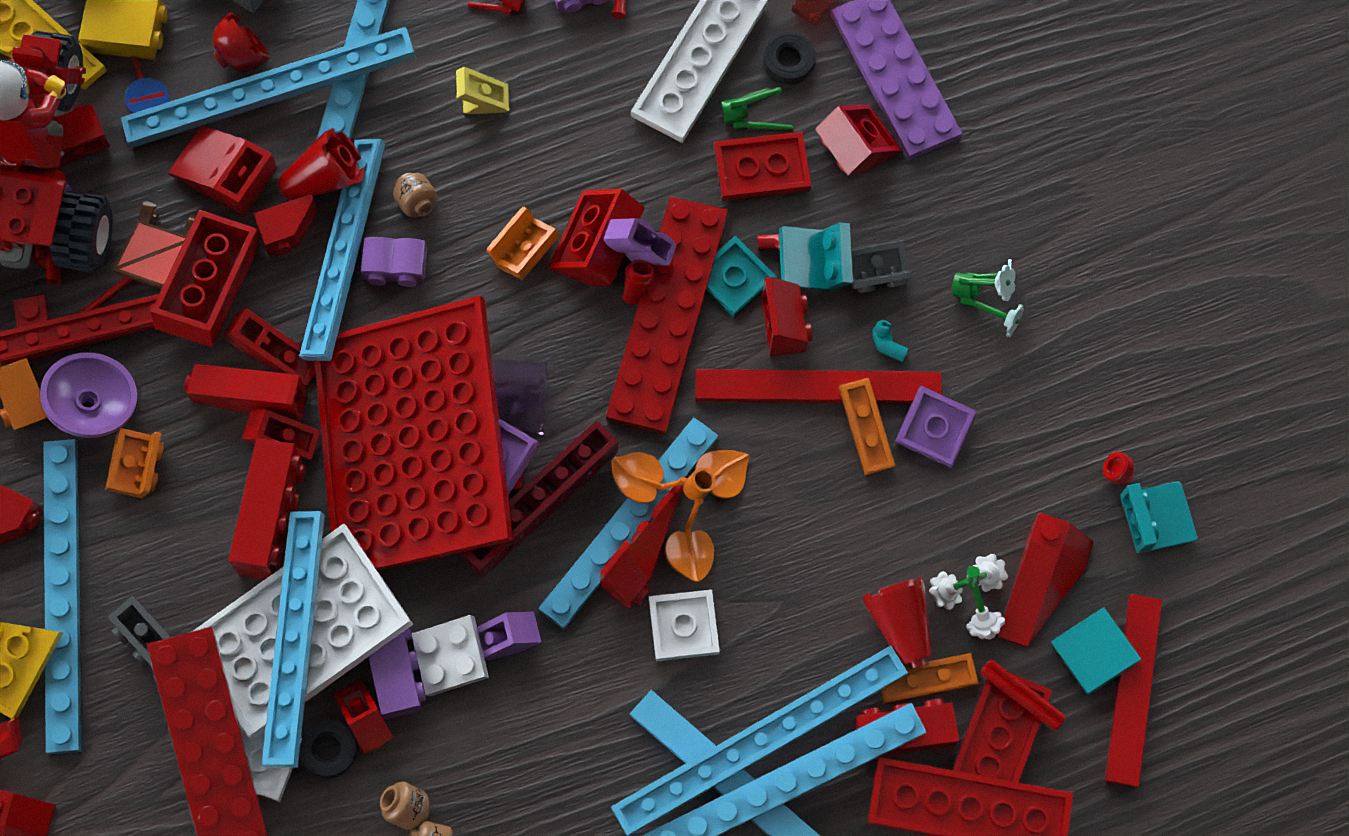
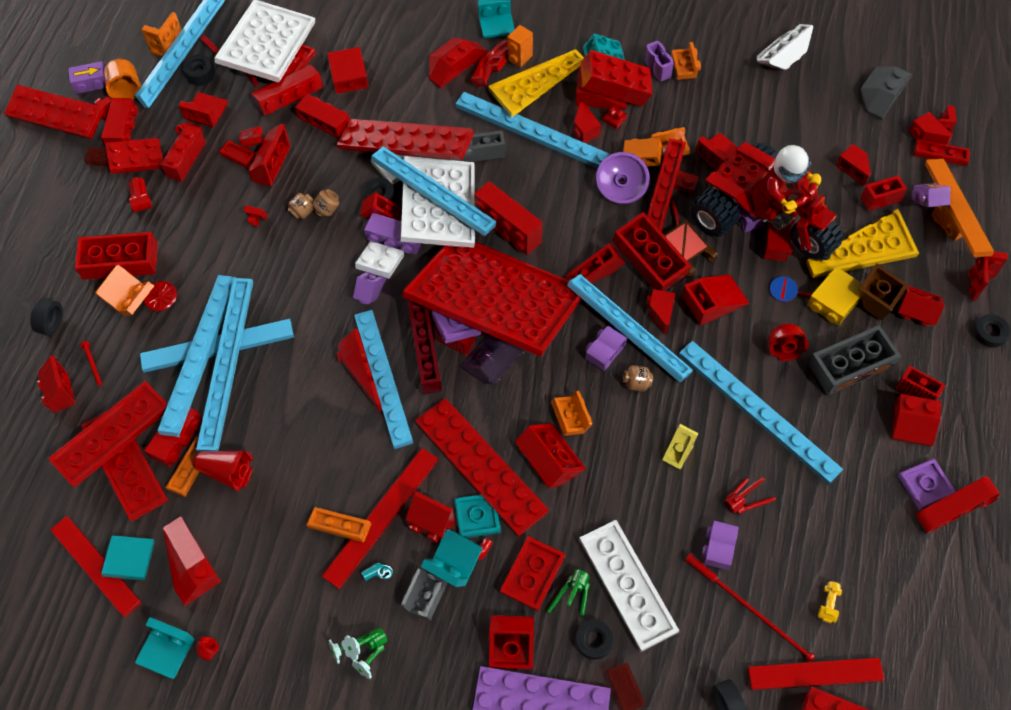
camera: 130 degrees right, 10 degrees down
(134, 463) = (577, 183): orange bracket -> none
(247, 390) = (575, 244): red slope -> none
(267, 87) = (749, 345): medium azure plate -> none
(275, 427) = (545, 247): red slope -> none
(323, 167) = (679, 340): red cone -> none
(637, 280) = (512, 455): red cone -> none
(639, 241) = (524, 463): medium lavender brick -> none
(684, 625) = (310, 367): white plate -> none
(716, 472) = (371, 436): orange plant -> none
(935, 426) = (310, 562): medium lavender tile -> none
(986, 572) = (221, 504): white plant -> none
(1023, 694) = (137, 499): red axle -> none

